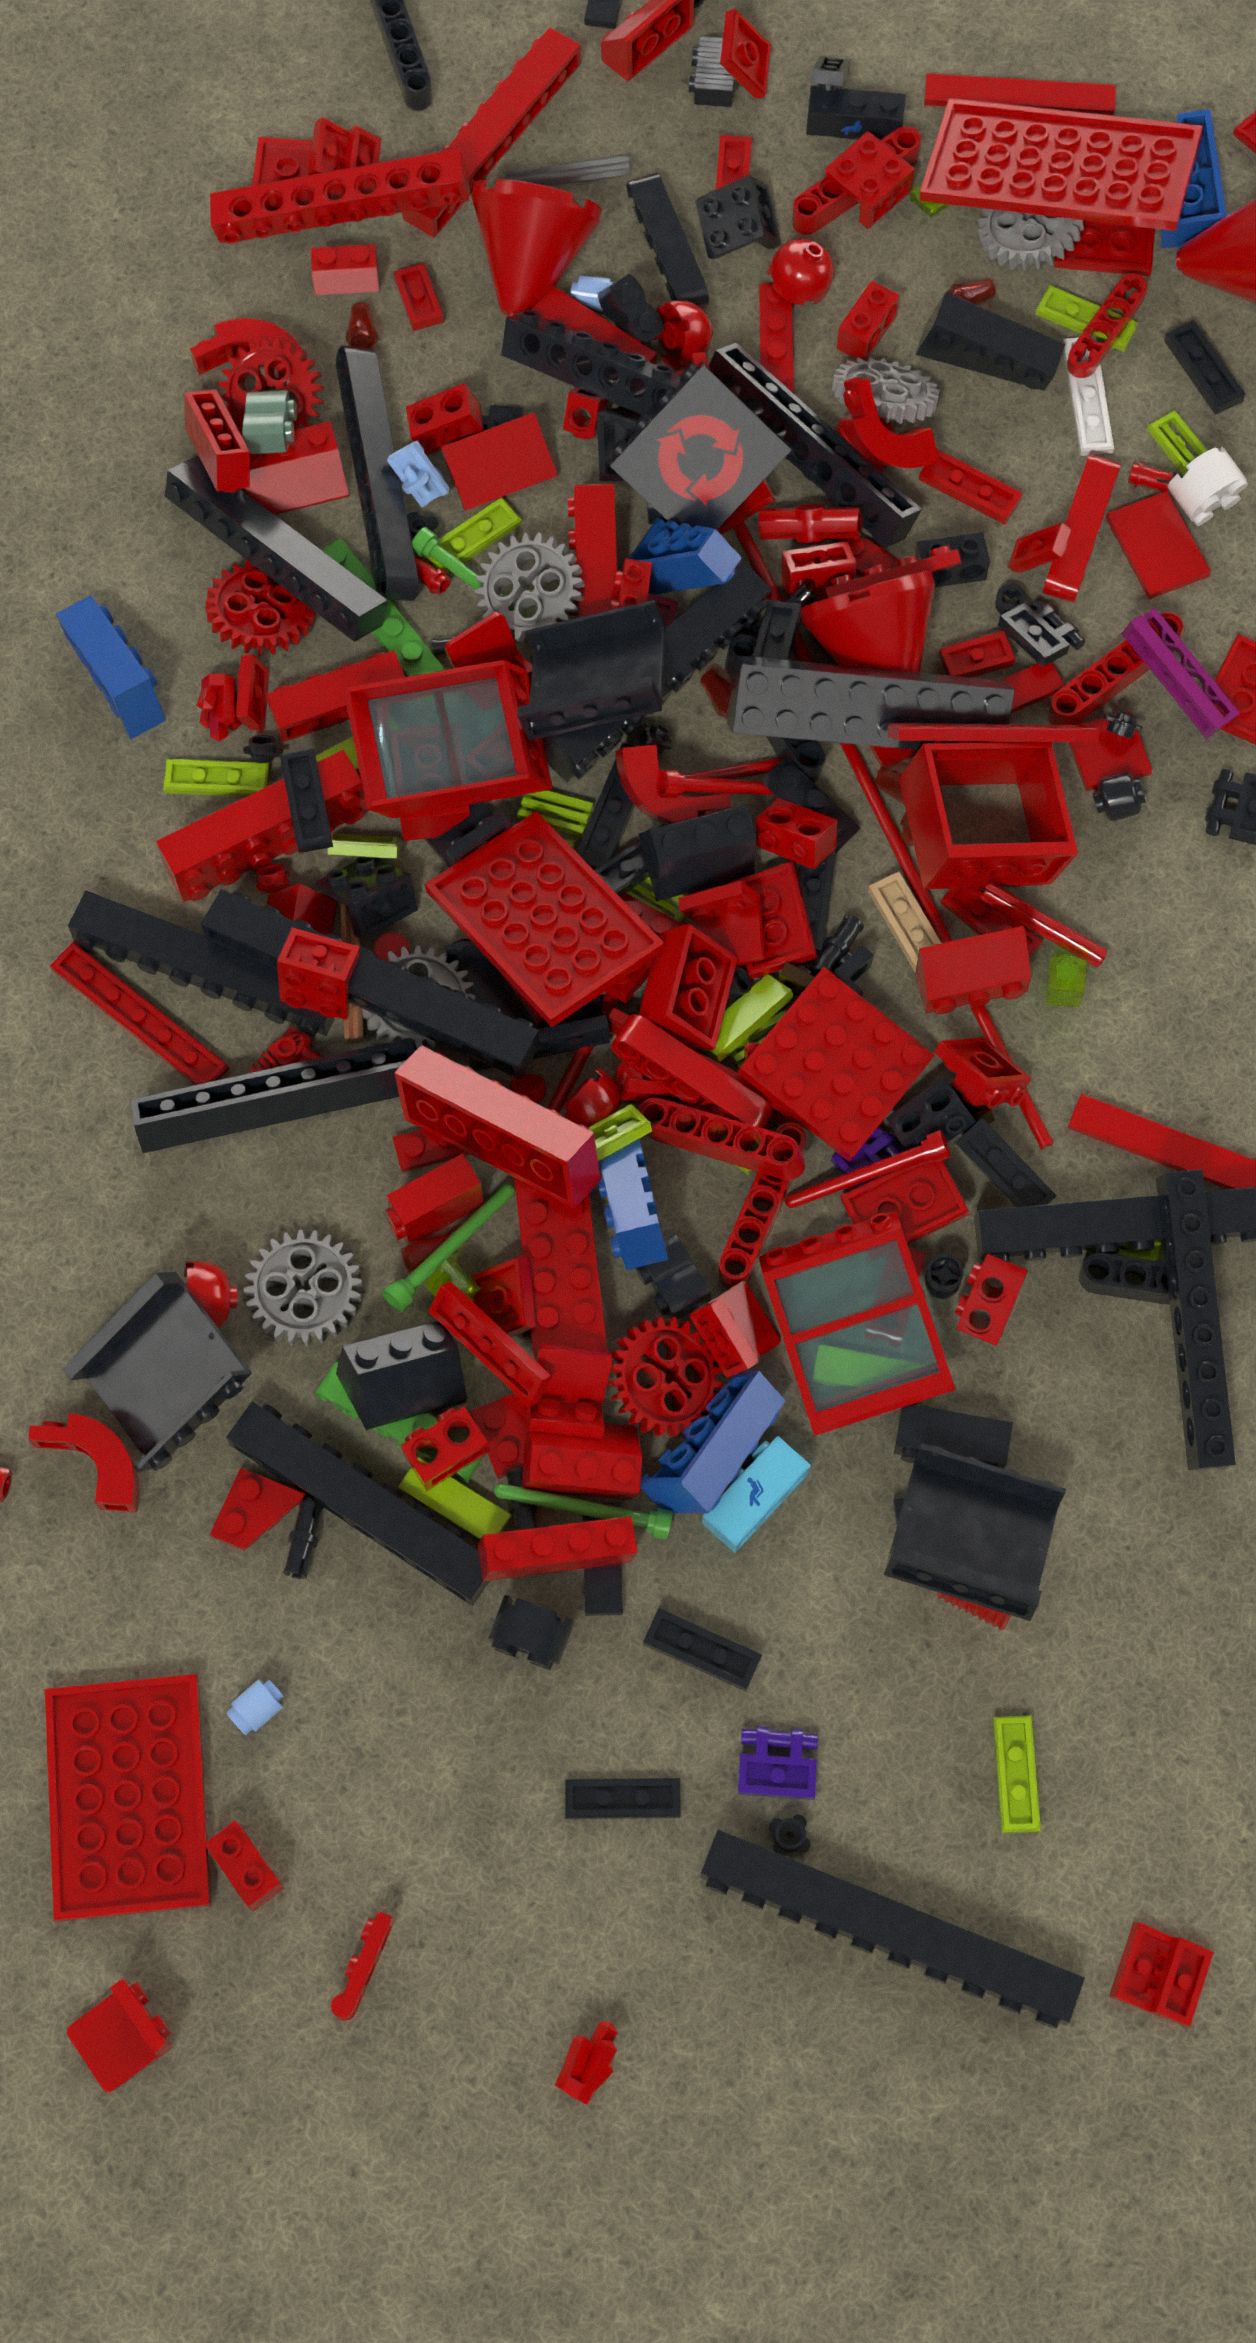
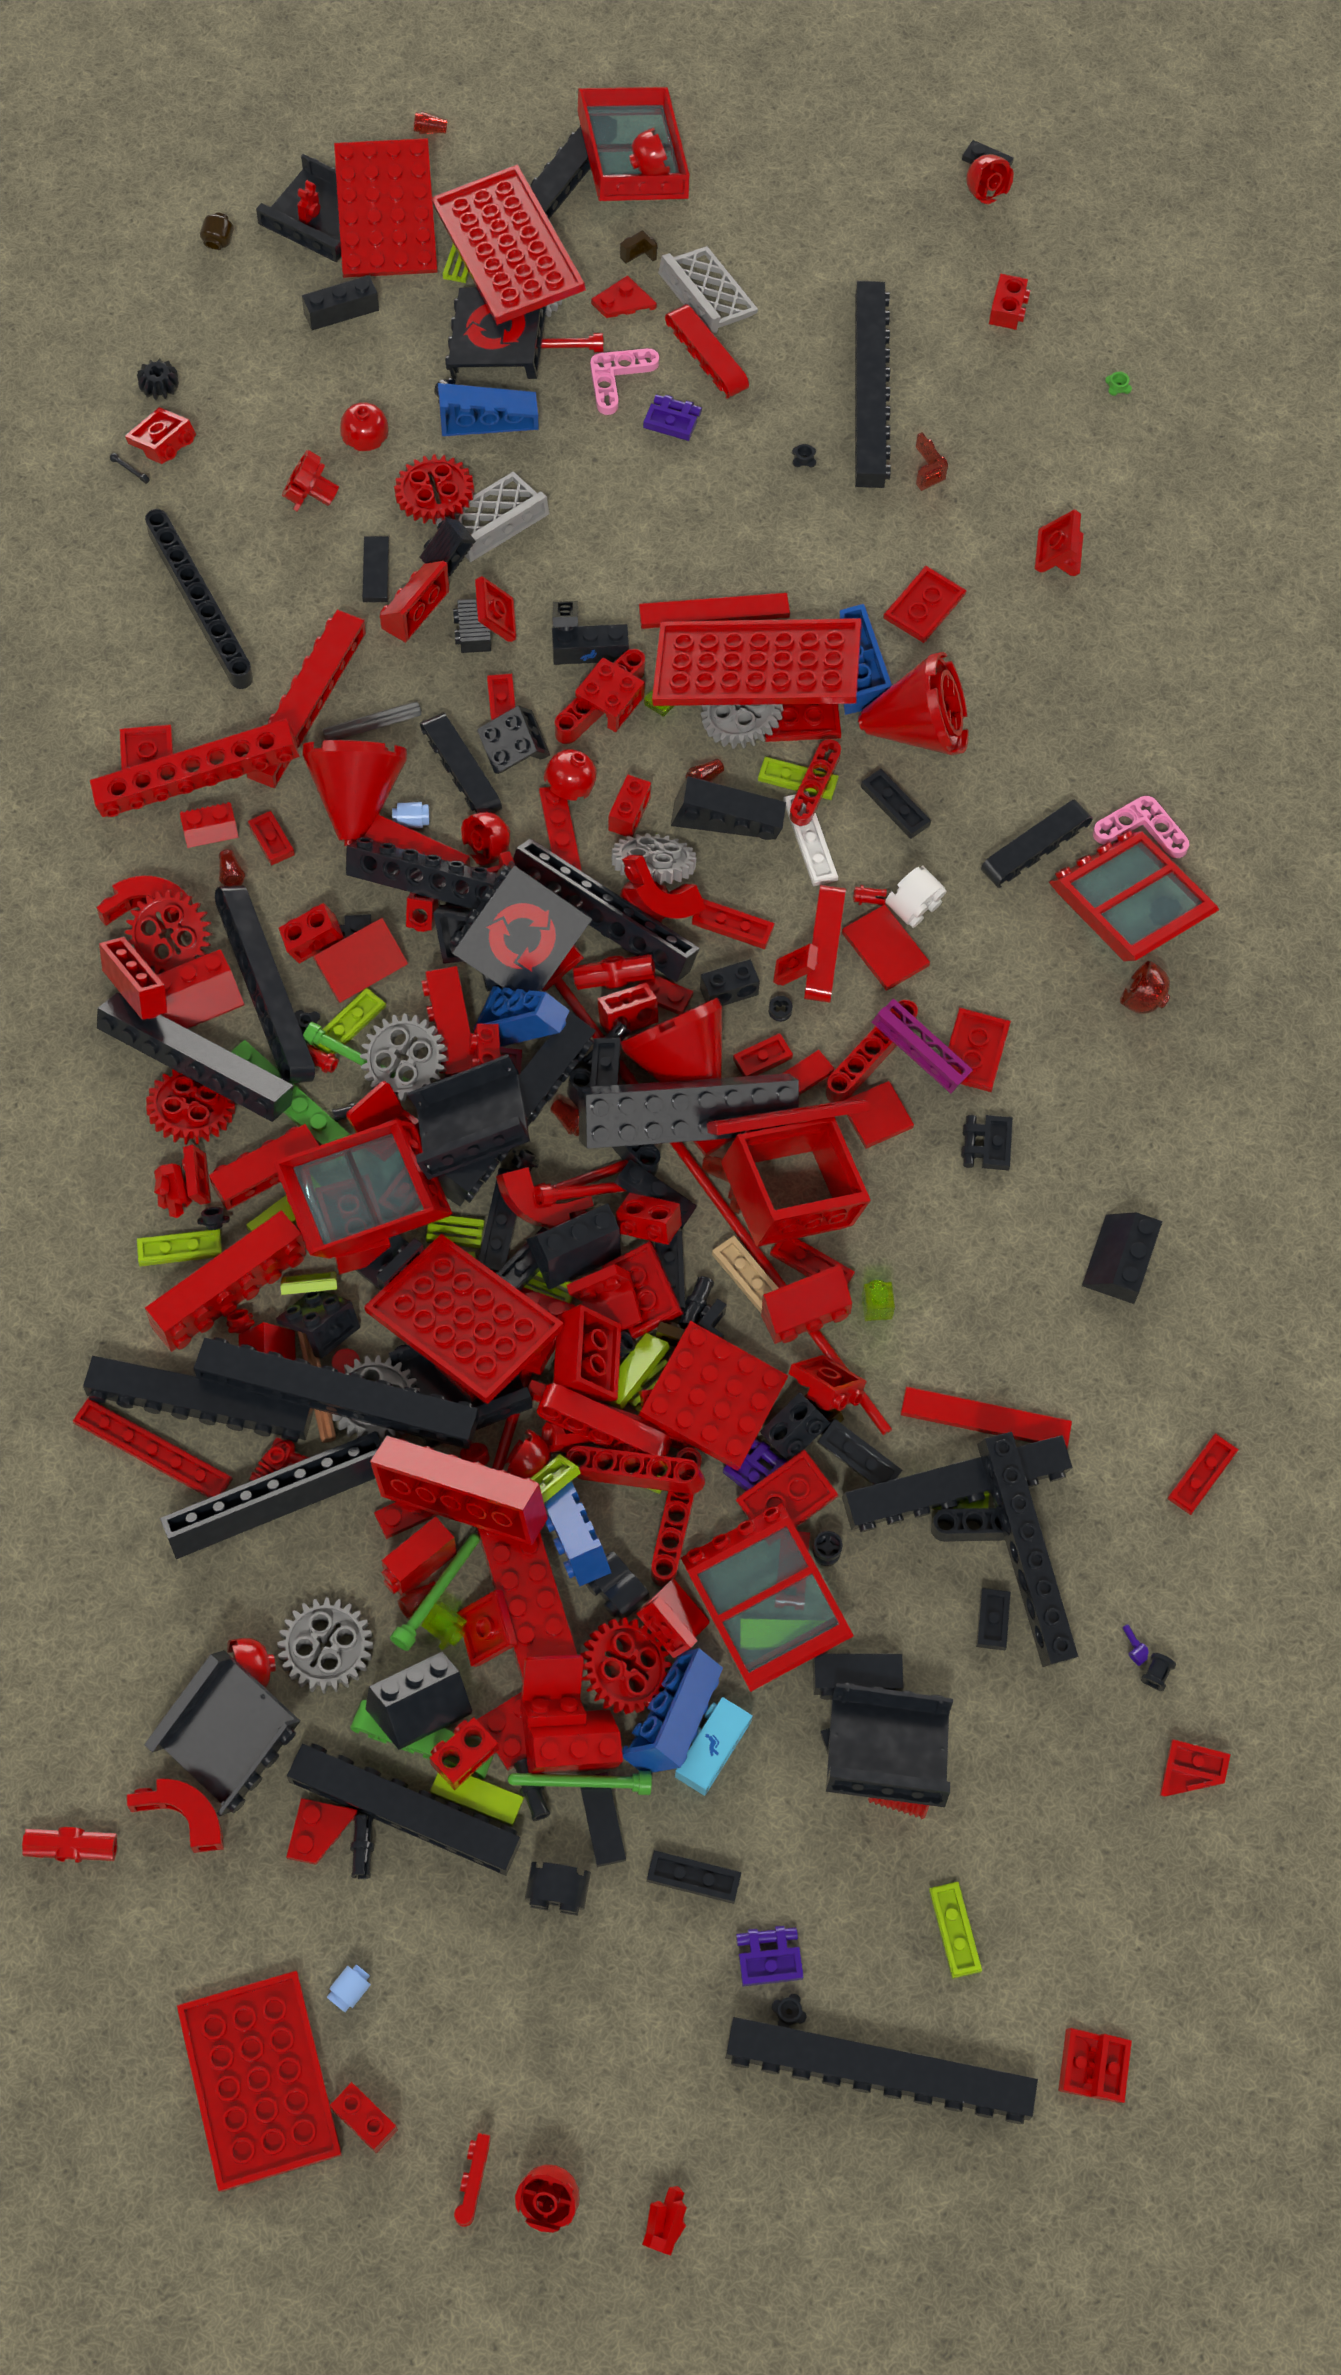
camera: 15 degrees left, 5 degrees down
(113, 665) = (80, 1170): blue wedge -> none
(120, 2036) = (288, 2274): red bracket -> none
(268, 421) = (173, 957): sand green brick -> none
(306, 800) = (259, 1256): black tile -> none
(316, 973) = (293, 1392): red bracket -> none
(341, 149) = (188, 730): red slope -> none
(418, 474) = (298, 979): light blue hips -> none
(449, 2005) = (548, 2198): none -> red cylinder
(490, 1343) = (484, 1663): red plate -> none
(557, 1548) = (566, 1817): red brick -> none
(622, 1798) = (653, 2007): black tile -> none
(627, 307) = (439, 822): black brick -> none
(932, 1148) = (801, 1449): red piece -> none
(940, 559) = (697, 997): red plate -> none
(995, 1301) = (869, 1560): red brick -> none
(1041, 631) = (808, 1029): black plate -> none
(1044, 924) = (853, 1259): red axle -> none
(1119, 796) = (892, 1149): black head -> none
(1122, 724) = (885, 1092): black plate -> none
(1137, 1400) = (993, 1619): none -> black plate
(1167, 446) = (865, 857): lime tile -> none

